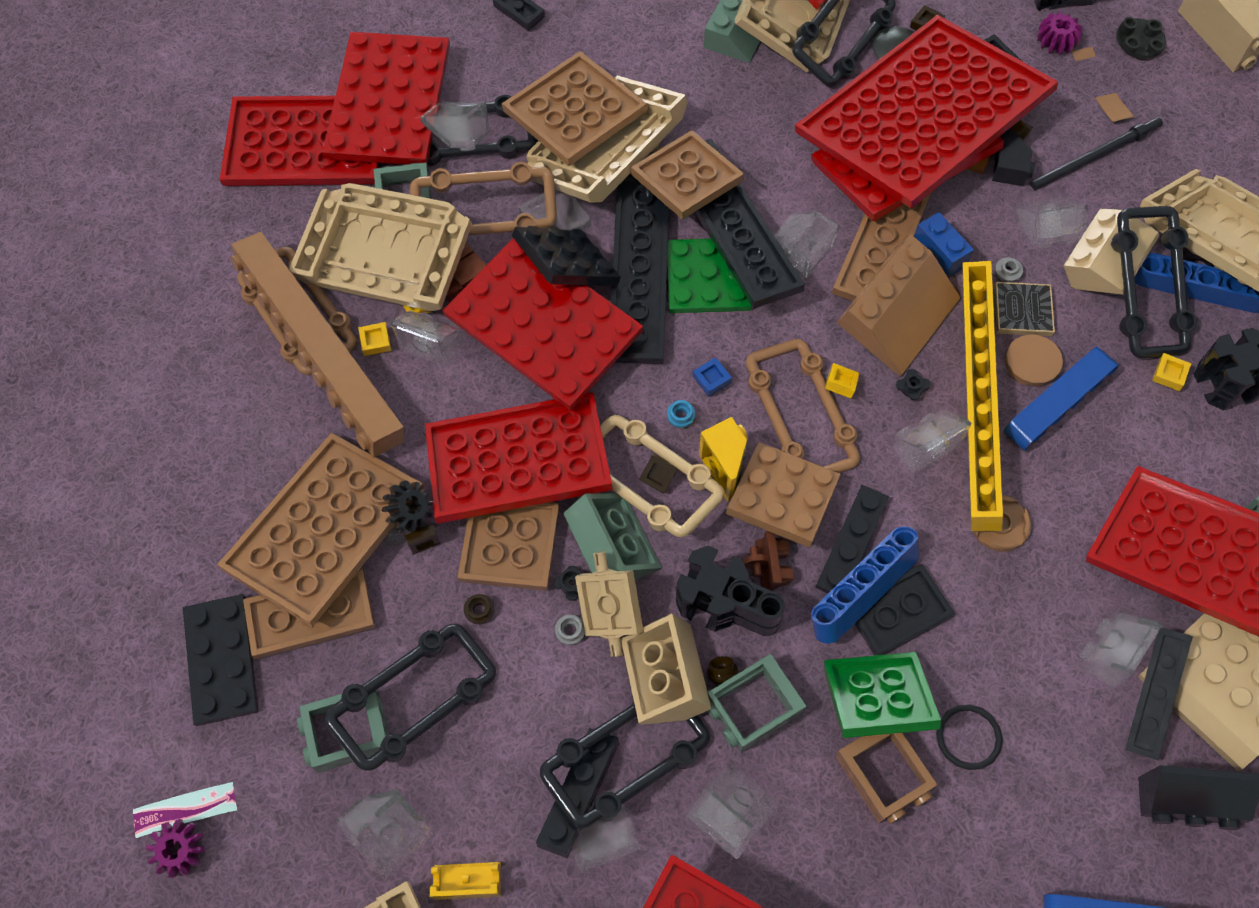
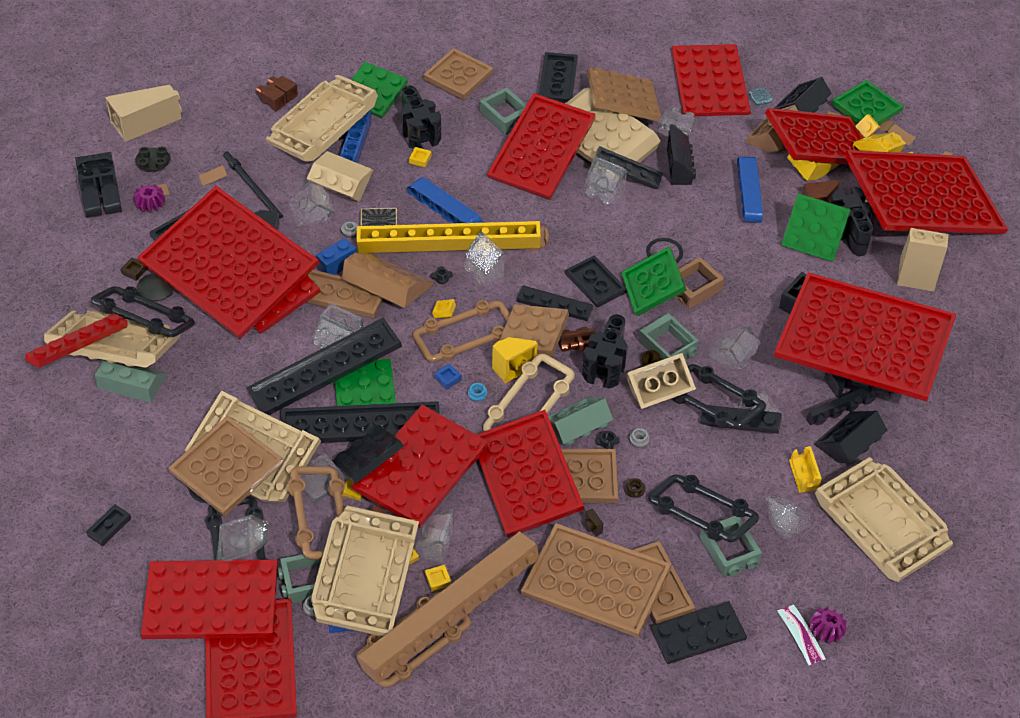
camera: 100 degrees left, 15 degrees down
(399, 511) = (578, 520): black gear -> none
(609, 603) = (624, 408): tan plate -> none
(658, 473) = (525, 398): dark brown plate -> none
(687, 174) = (289, 390): medium nougat plate -> none
(865, 585) = (592, 294): blue beam -> none
(1033, 360) = (416, 215): medium nougat tile -> none
(1174, 240) = (344, 160): black bar -> none

